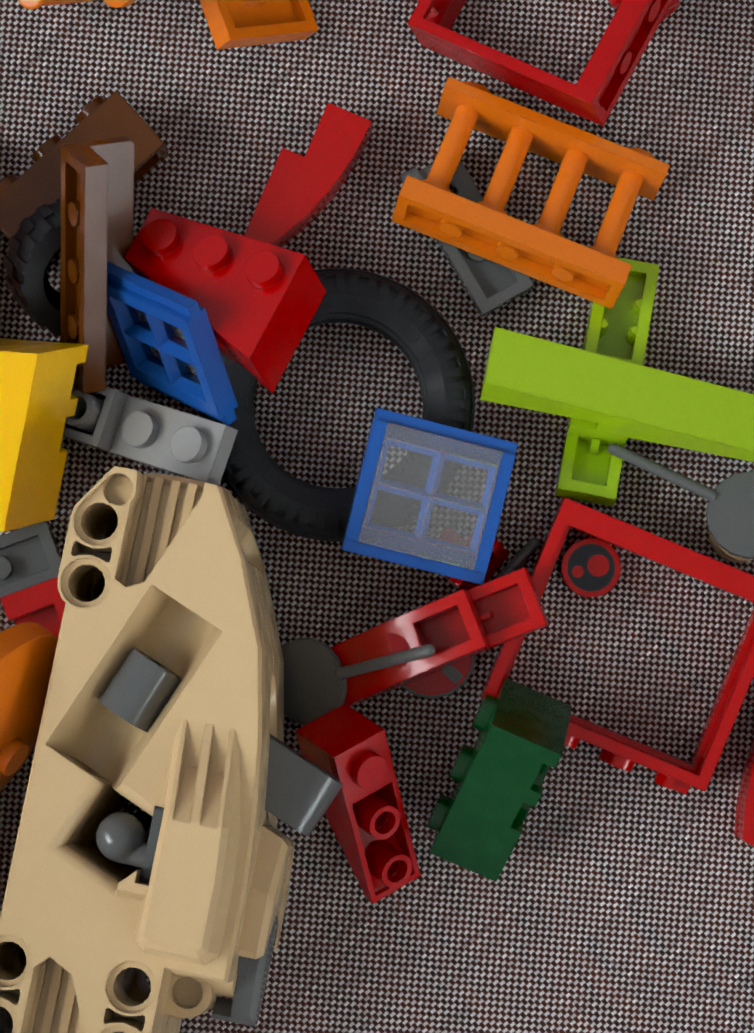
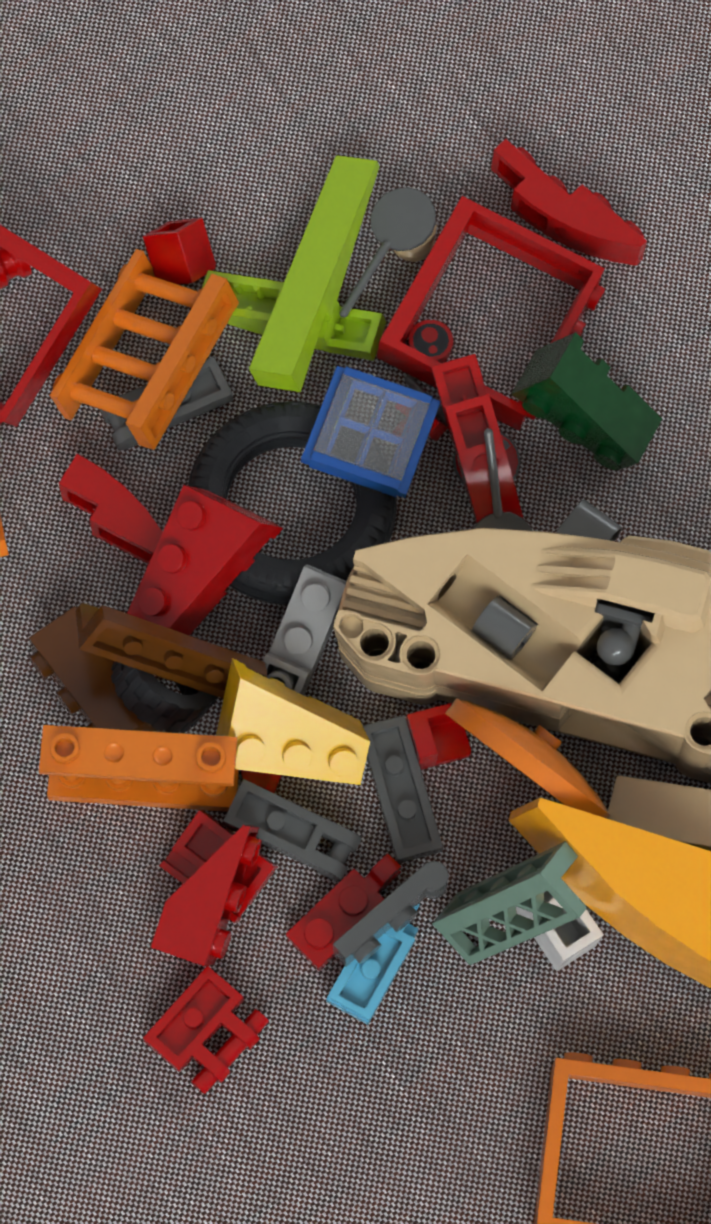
camera: 85 degrees left, 15 degrees down
(169, 343) = (239, 600): blue piece -> none
(369, 805) = (626, 503): red slope -> none
(681, 225) = (180, 251): none -> red panel

